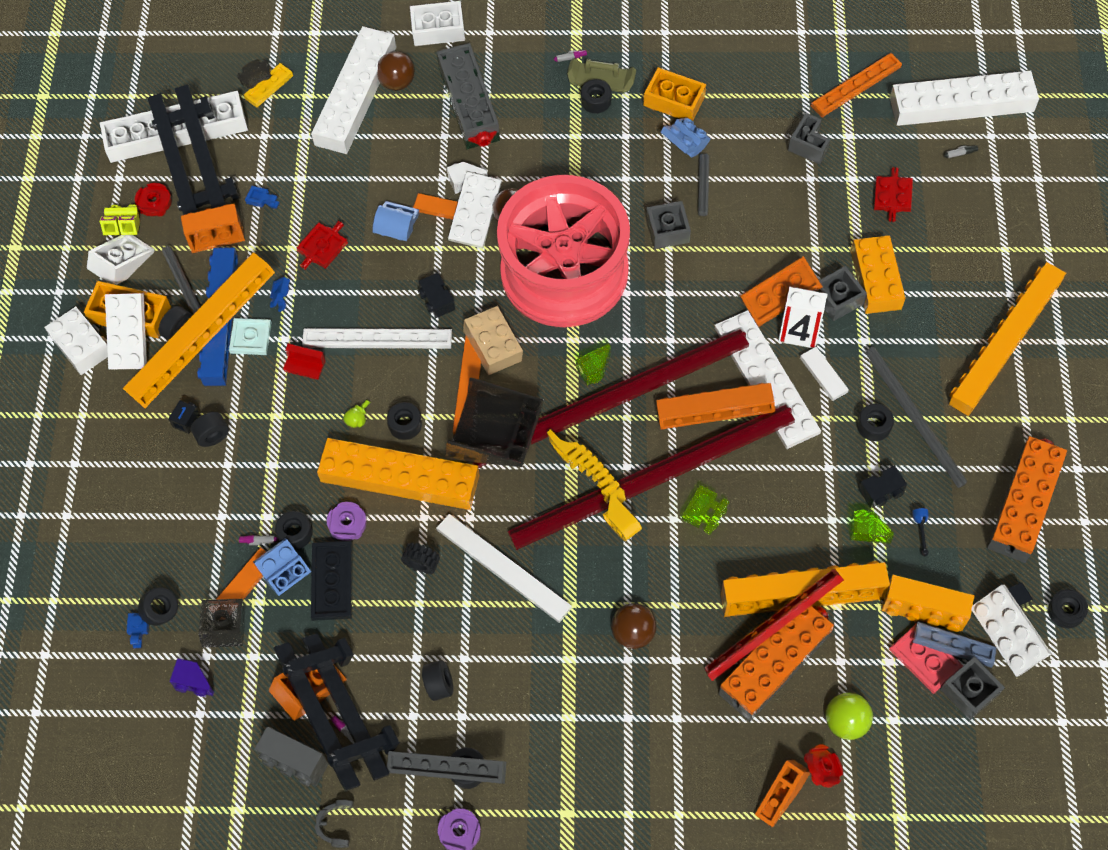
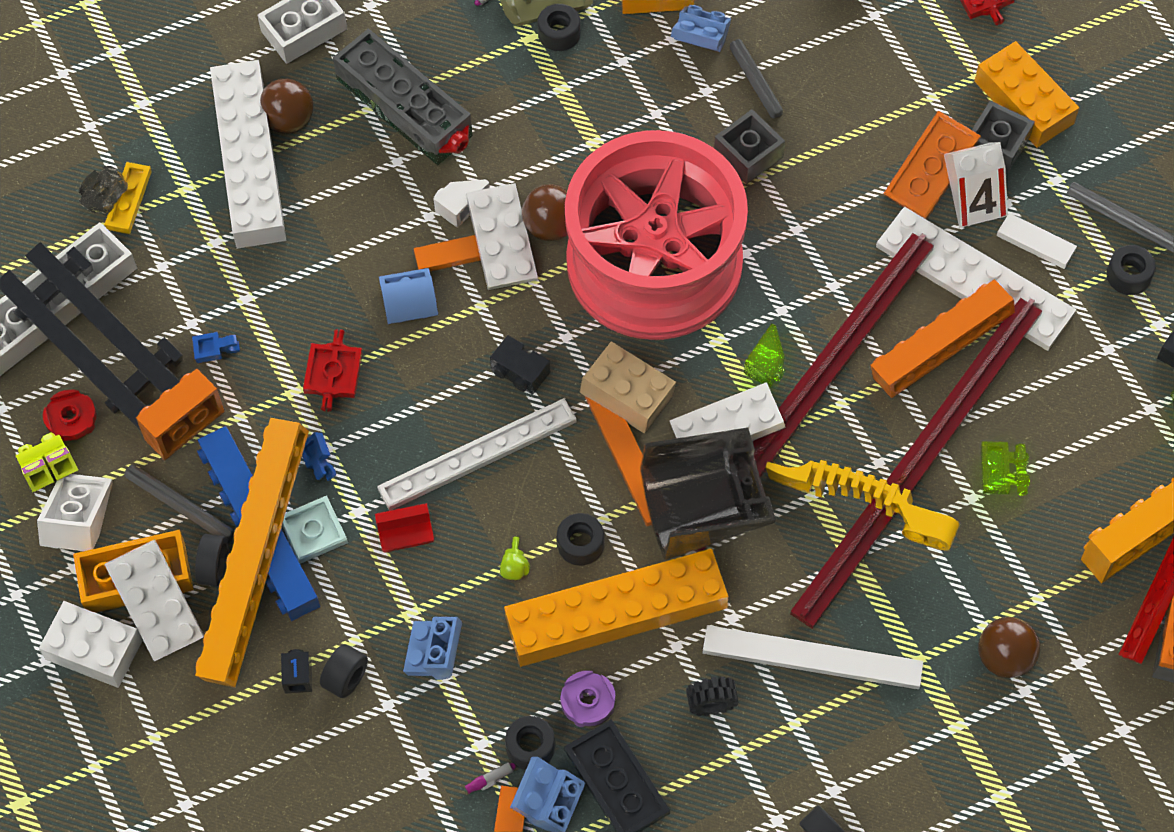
camera: 30 degrees left, 0 degrees up
(273, 442) = (433, 647): none -> medium blue brick
(558, 393) = (750, 409): none -> white plate

